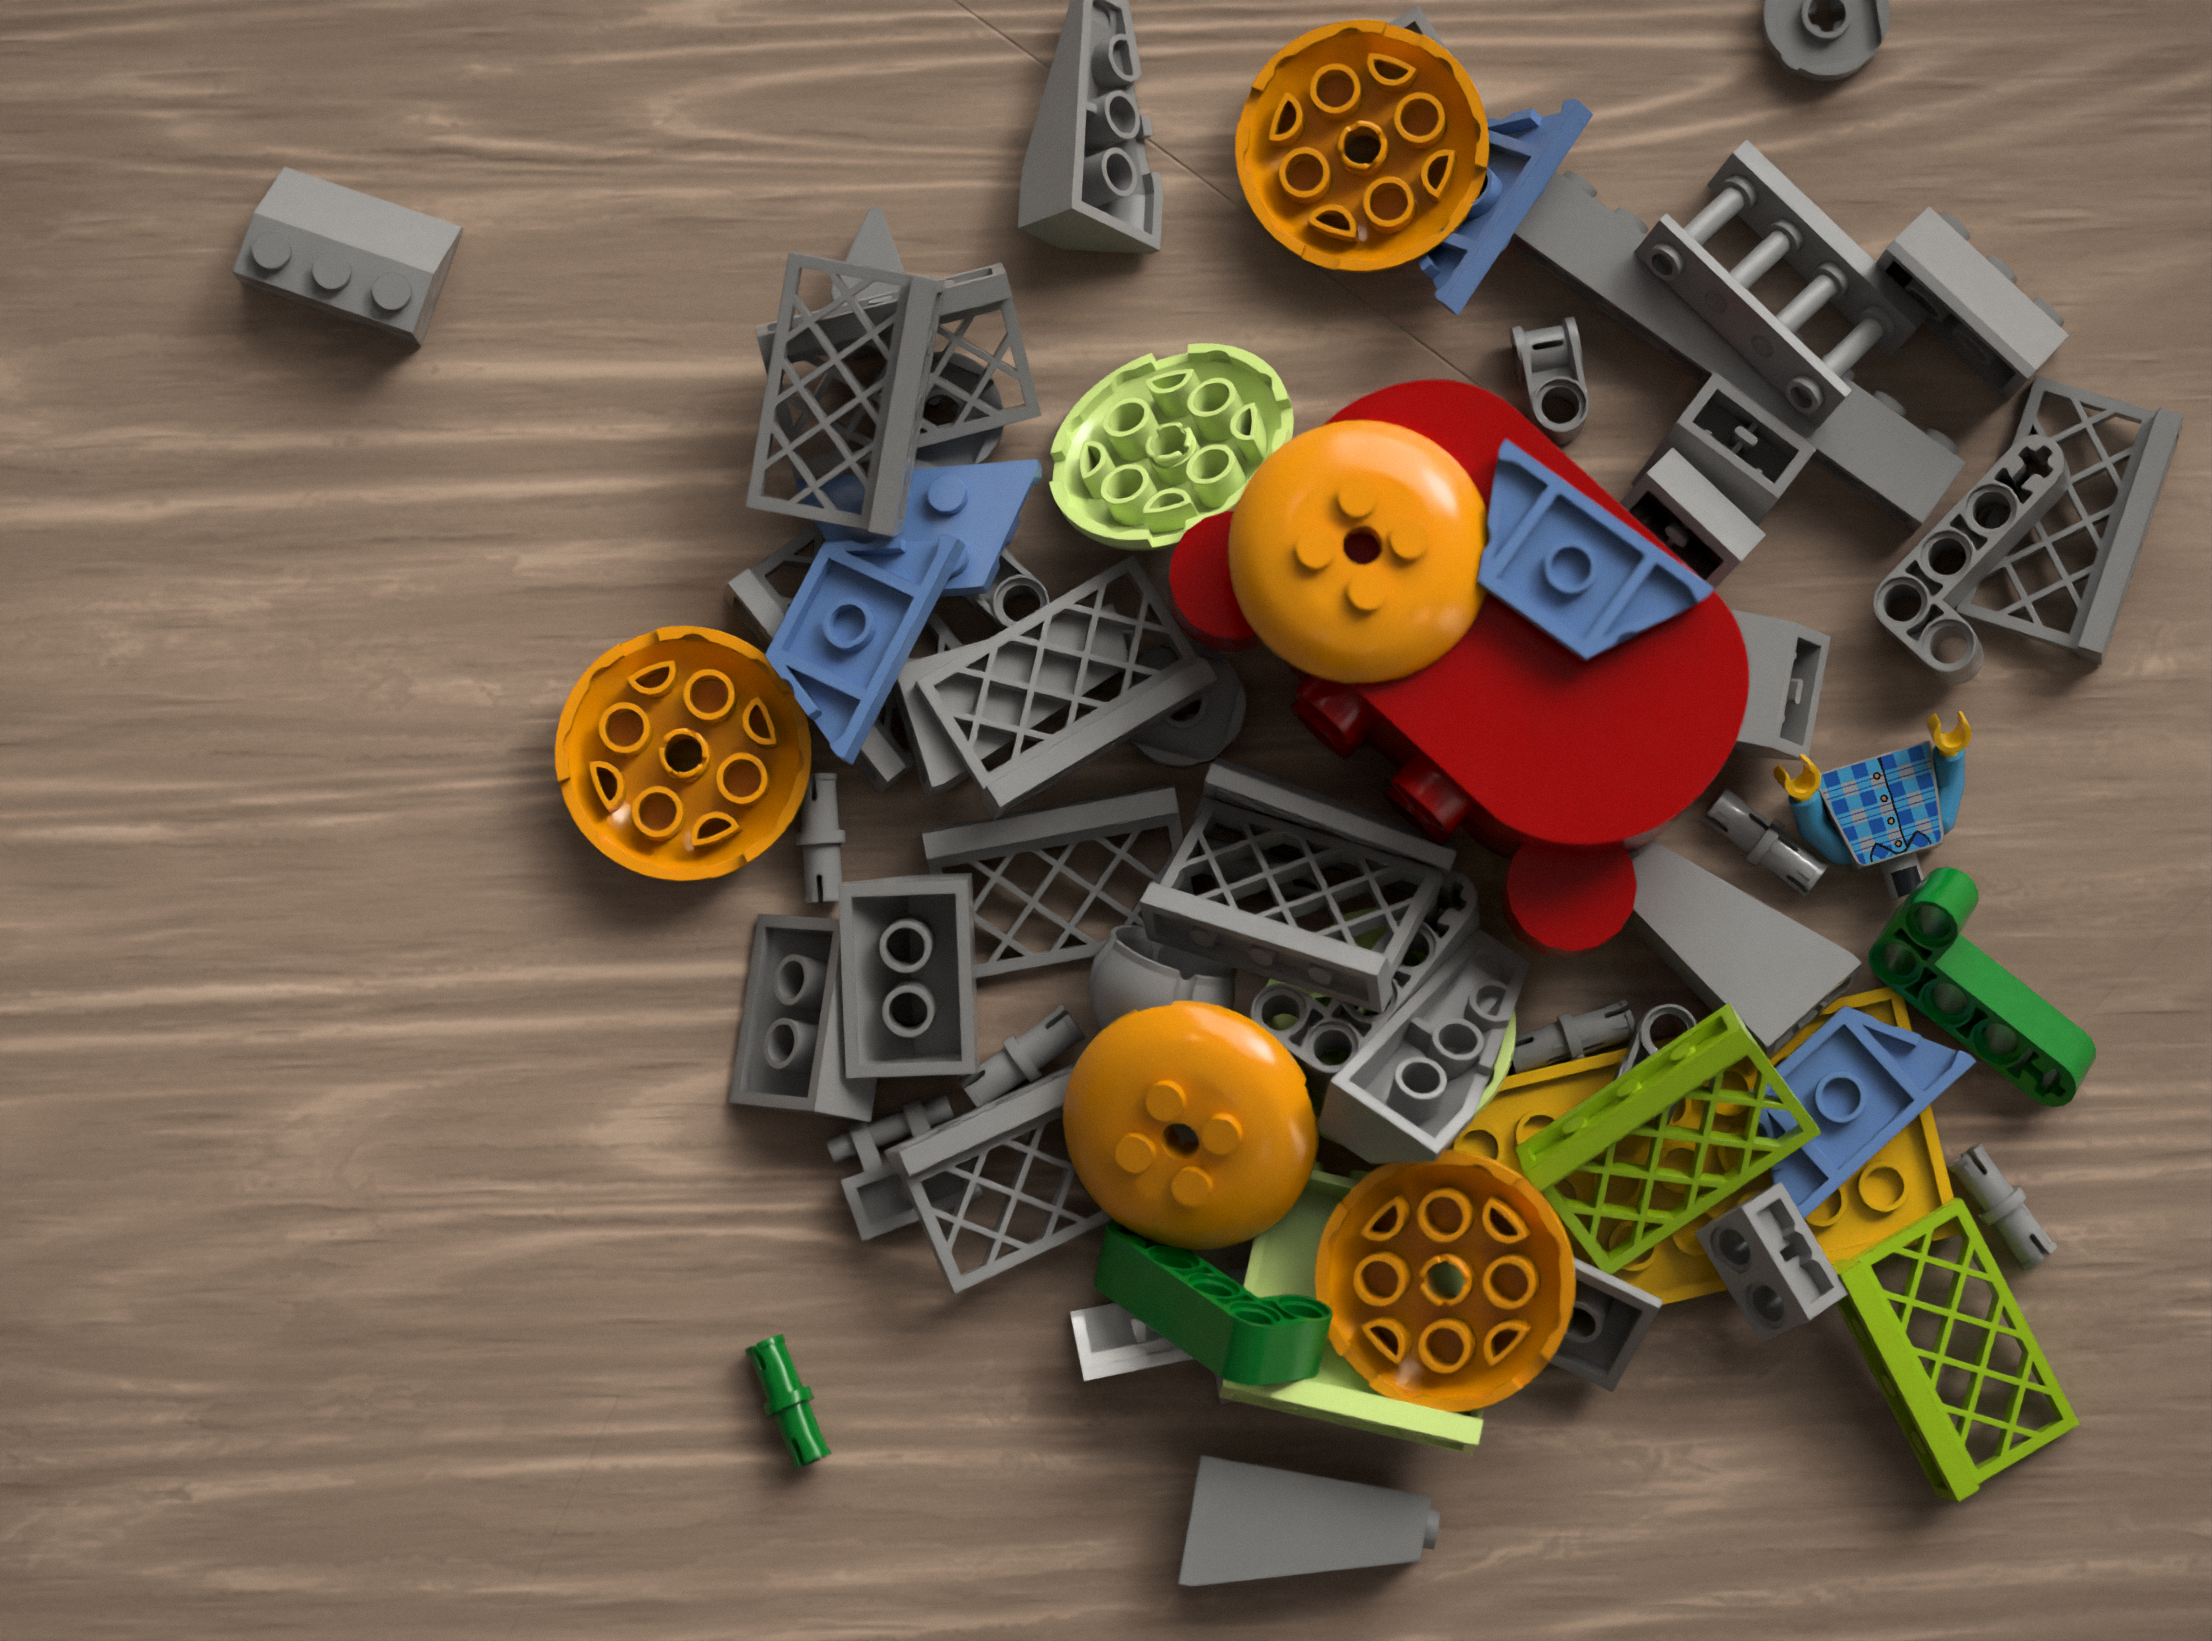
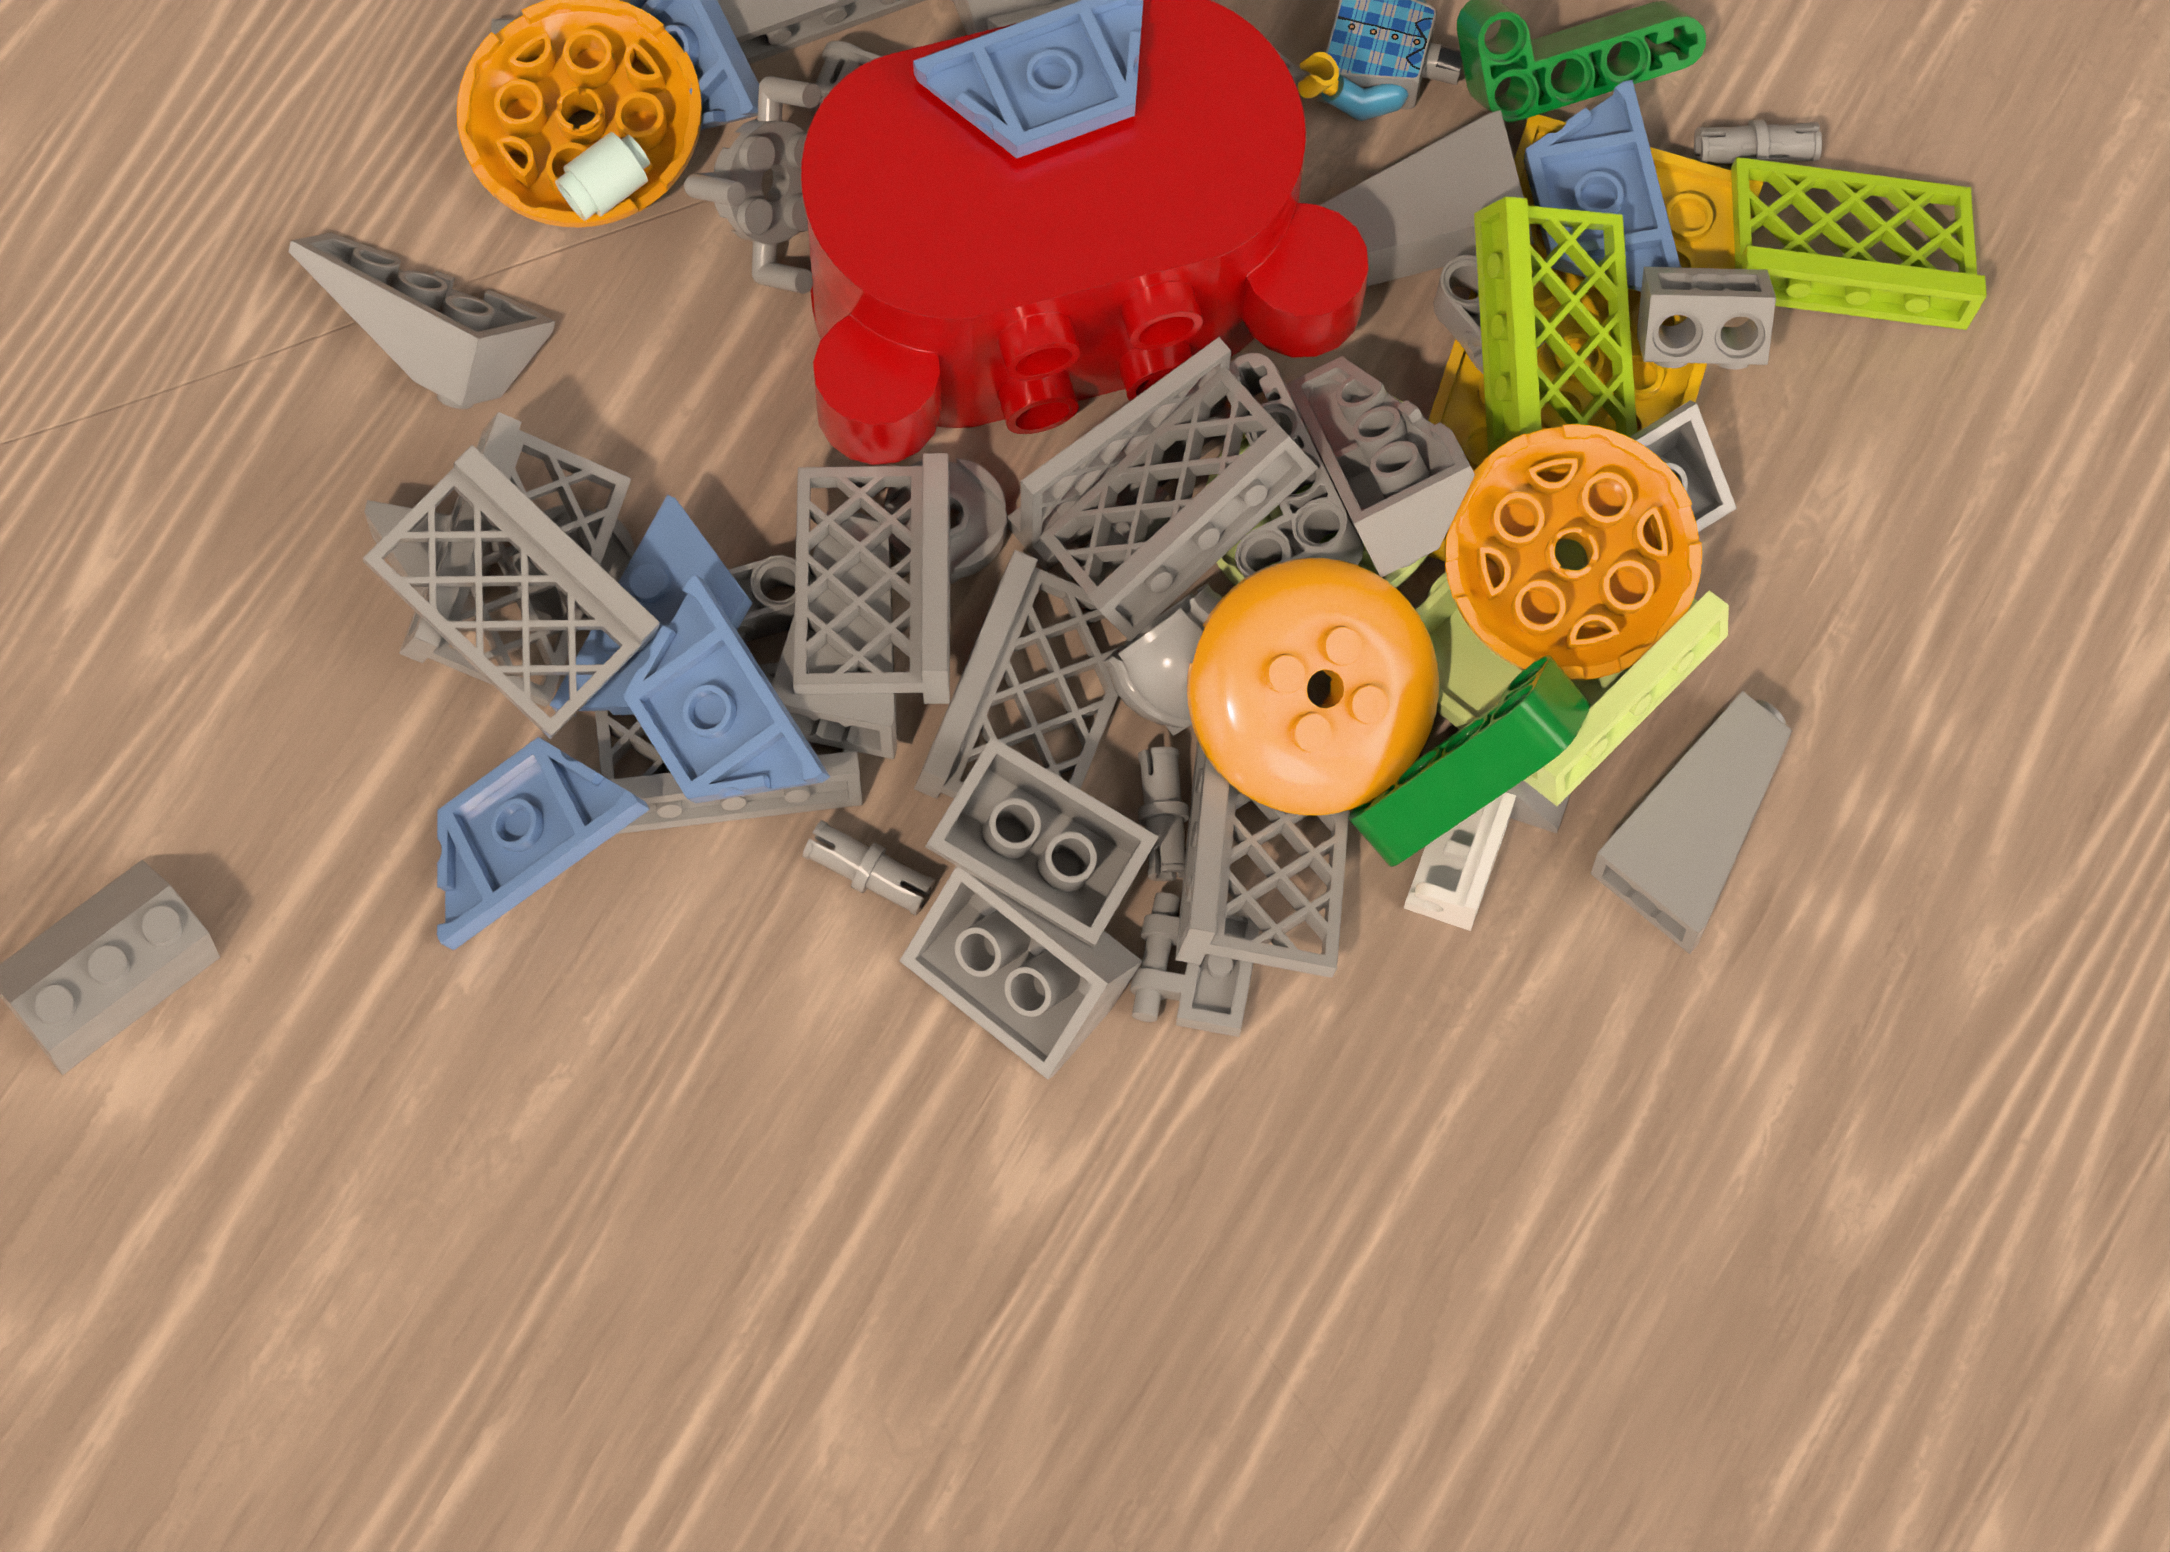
camera: 60 degrees left, 15 degrees down
(667, 530) = (520, 833): none -> medium blue wing
(671, 690) = (712, 870): light orange brick -> none
(788, 1401) = (1342, 1176): green pin -> none
(1167, 444) = (727, 387): yellowish green brick -> none
(1301, 212) = (603, 175): none -> light aqua brick
(1346, 616) = (937, 282): light orange brick -> none
(1360, 335) = (738, 179): none -> light grey plate
(1573, 1037) = (1419, 376): light grey pin -> none
(1765, 842) = (1355, 148): light grey pin -> none

